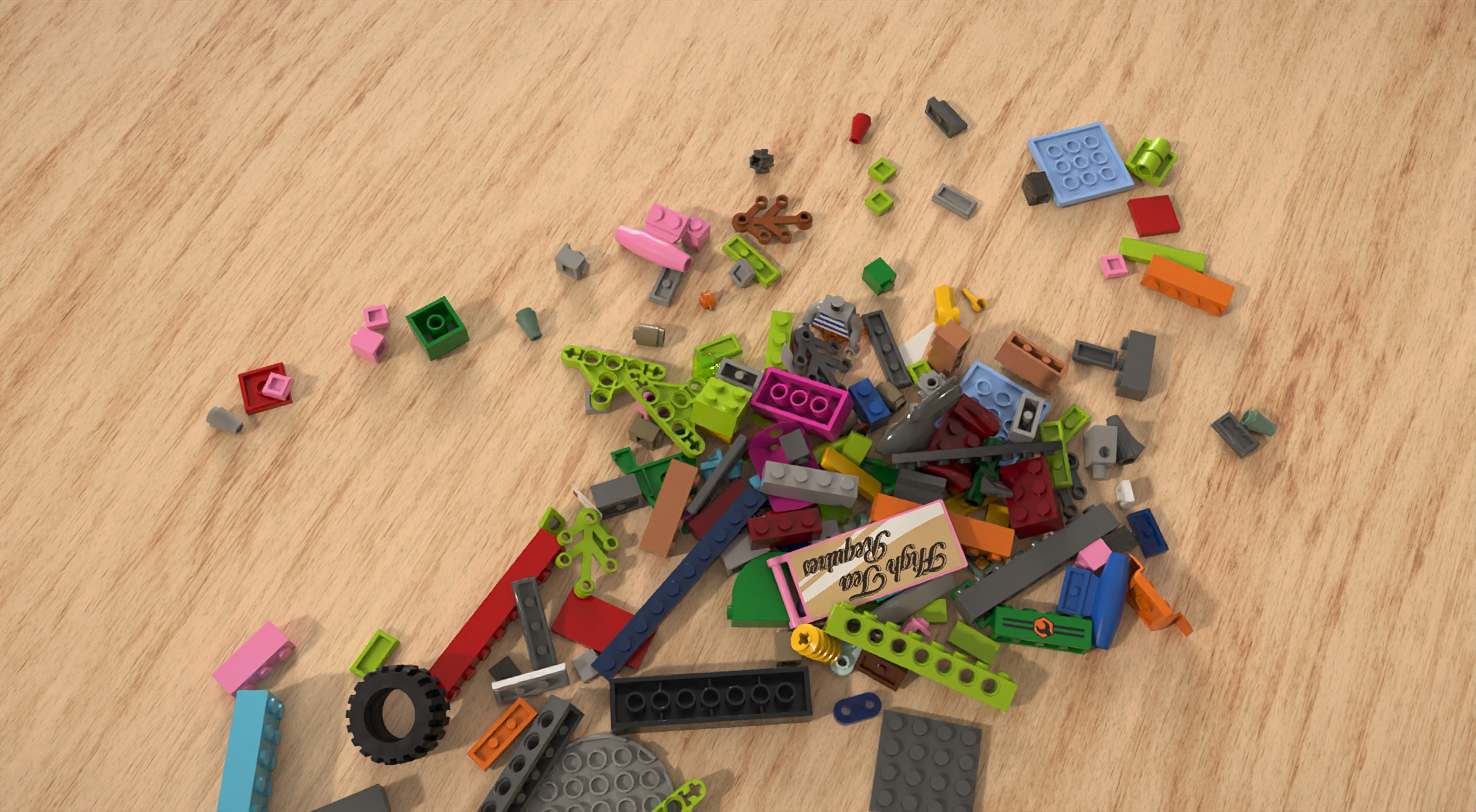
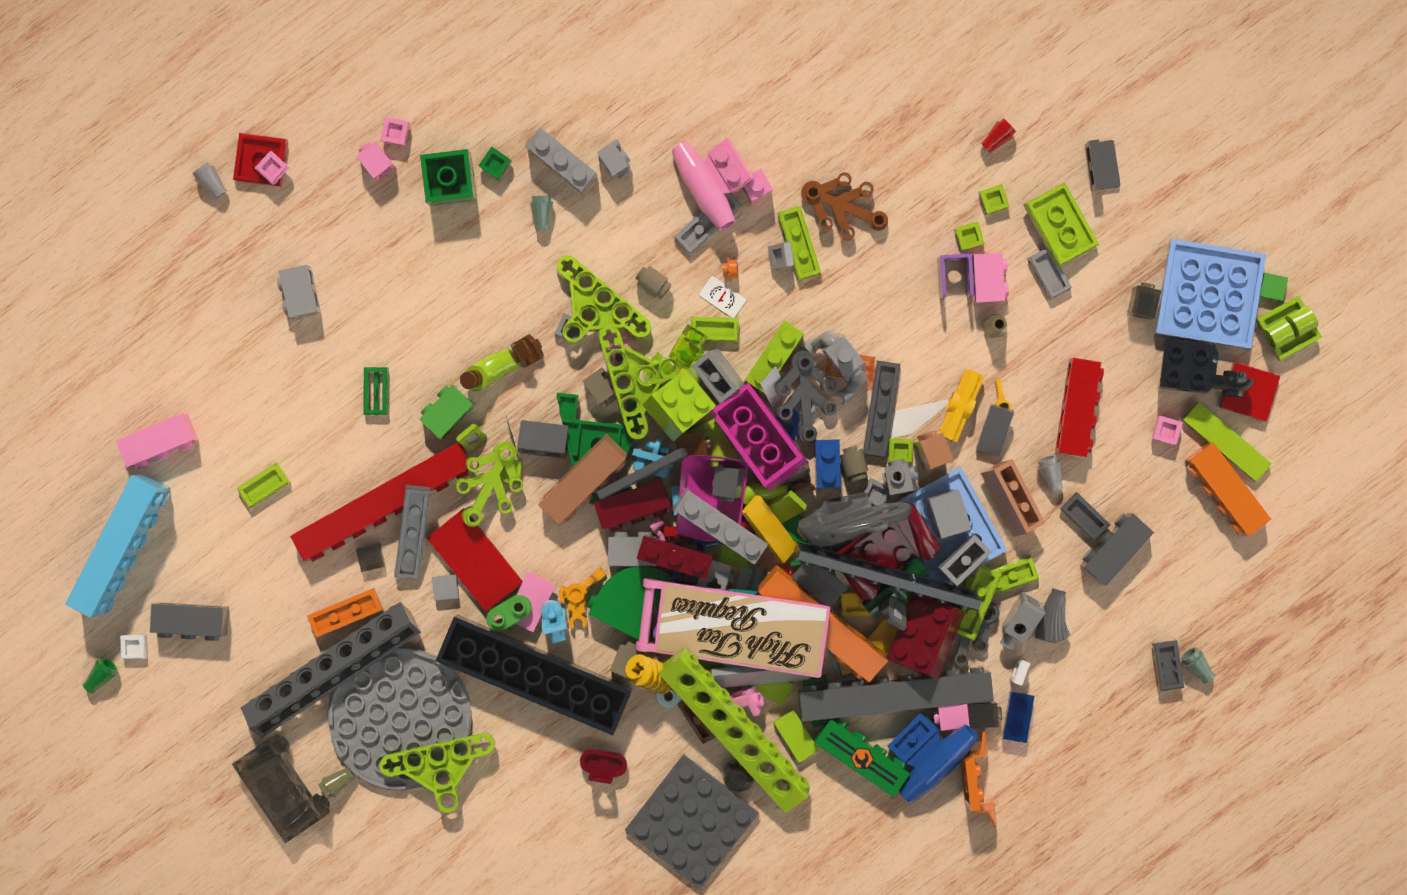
camera: 30 degrees right, 25 degrees up
(342, 473) = (299, 292): none -> light grey brick
(367, 716) = (236, 569): black tyre -> none
(454, 543) = (385, 391): none -> green tile
(473, 305) = (495, 163): none -> green plate
(519, 512) = (446, 411): none -> bright green brick
(528, 279) = (561, 161): none -> light grey brick
(531, 684) = (387, 581): light grey tile -> none
(548, 454) = (493, 367): none -> piece
(659, 655) = (509, 613): none -> bright green plate
(674, 640) = (538, 592): none -> bright pink piece
(678, 584) = (560, 555): dark blue plate -> none
(704, 640) = (554, 620): none -> medium azure hips
(711, 325) = (722, 297): none -> white sticker
(712, 615) = (576, 596): none -> light orange piece
(761, 161) = (869, 130): dark grey gear -> none
(816, 755) = (603, 765): none -> dark red bracket
(857, 708) = (661, 739): clear blue plate -> none
(879, 276) = (918, 327): green brick -> none
(894, 221) = (967, 258): none -> medium lavender piece
(911, 221) = (989, 278): none -> bright pink brick
(938, 249) = (991, 330): none -> olive cone
(942, 165) = (1061, 224): none -> lime tile
(944, 705) = (736, 777): none -> clear smoke brick
(984, 322) = (994, 430): none -> dark grey tile
(991, 390) = (948, 513): none -> light grey piece
(1037, 279) = (1078, 407): none -> red brick
(1047, 333) = (1051, 472): none -> light grey cone
(1106, 212) = (1193, 369): none -> black brick
(1122, 142) = (1273, 287): none -> bright green tile

